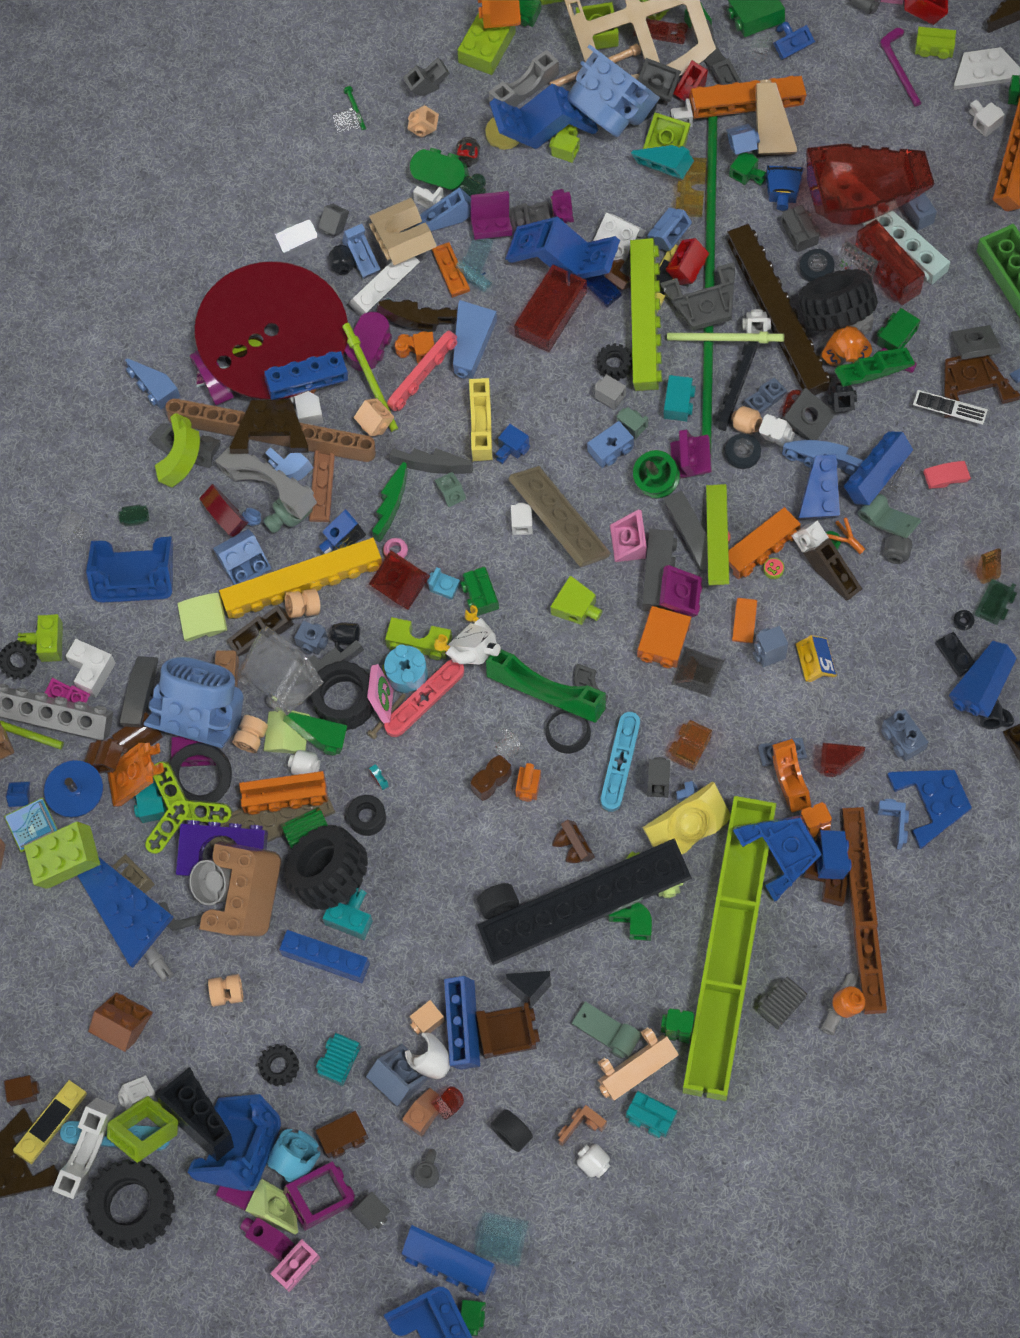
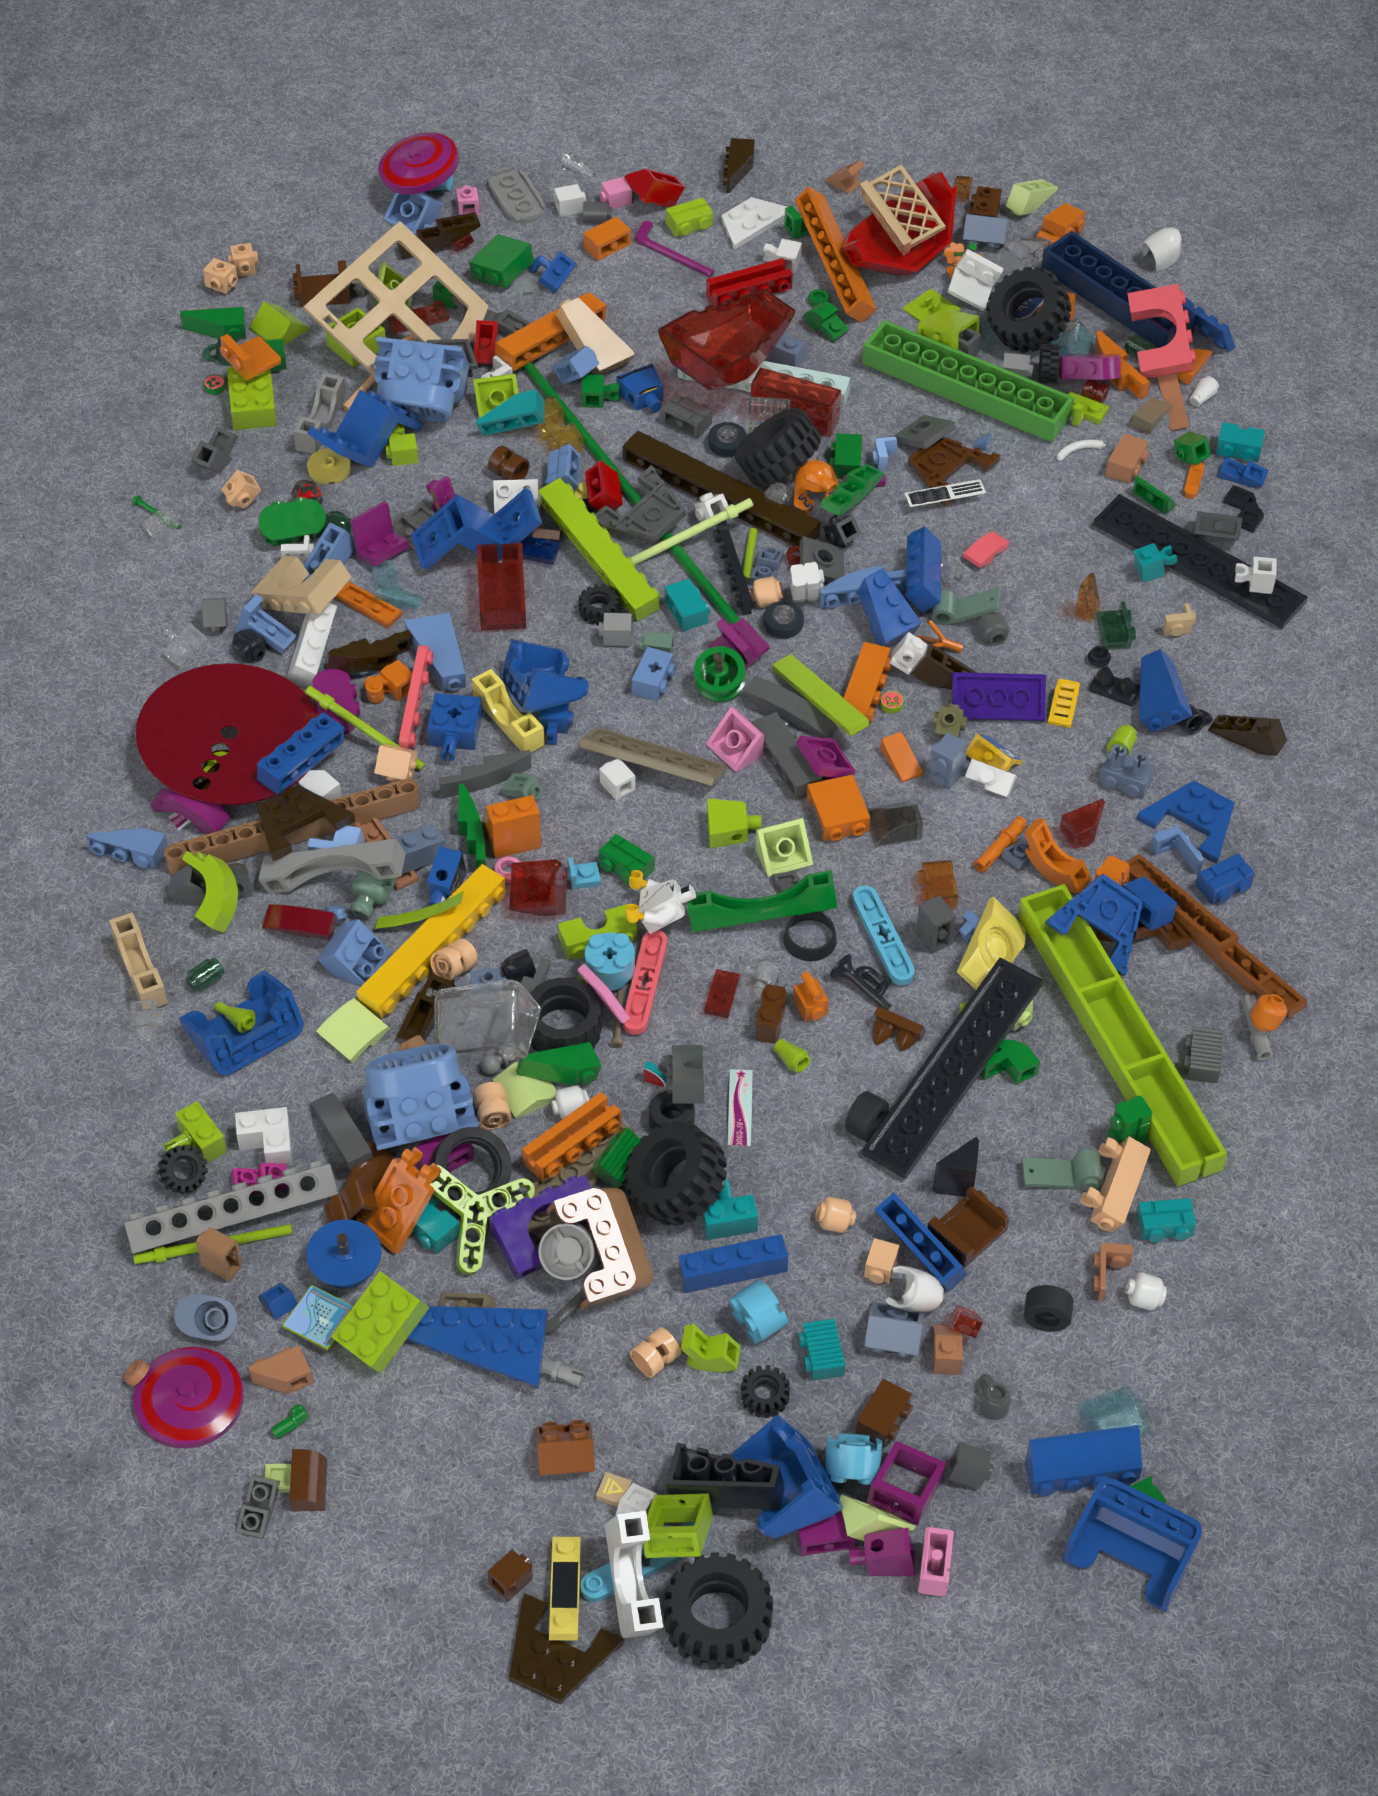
camera: 40 degrees left, 15 degrees down
(100, 464) = (136, 959): none -> tan arch
(131, 1070) = (612, 1489): none -> tan tile
(133, 564) = (240, 1018): none -> lime cone
(261, 1012) = (710, 1353): none -> lime brick
(303, 551) = (417, 915): none -> lime sticker
(312, 1004) = (759, 1311): none -> medium azure brick
(338, 498) = (420, 847): none -> sand blue brick
(383, 801) = (685, 1074): none -> dark grey arch
(415, 519) = (512, 826): none -> orange slope
(421, 836) = (740, 1107): none -> sticker
(421, 963) = (835, 1214): none -> light nougat head
(437, 407) = (454, 723): none -> blue brick
(469, 14) = (214, 384): none -> tile
(471, 739) = (722, 993): none -> clear red plate
(484, 821) = (793, 1056): none -> lime cone
(521, 405) = (537, 679): none -> blue windscreen
(570, 773) = (845, 969): none -> black piece
(599, 648) = (783, 847): none -> yellowish green slope
(632, 202) = (508, 464): none -> reddish brown wheel
(760, 378) = (749, 553): none -> lime bar
(764, 737) = (1006, 837): none -> orange pin
(797, 677) = (995, 779): none -> white tile
(799, 613) = (952, 712): none -> olive brick
(816, 340) = (780, 493): none -> clear bracket
(854, 612) = (1000, 696): none -> dark purple tile
(855, 30) = (607, 238): none -> orange brick
(911, 868) = (1225, 879): none -> blue brick
(913, 630) = (1068, 690): none -> yellow slope
(923, 704) = (1123, 735): none -> lime brick
(930, 338) = (883, 448): none -> light blue bracket
(937, 130) = (769, 276): none -> red brick
(973, 194) = (824, 317): none -> green brick
(986, 171) = (817, 296): none -> green tile

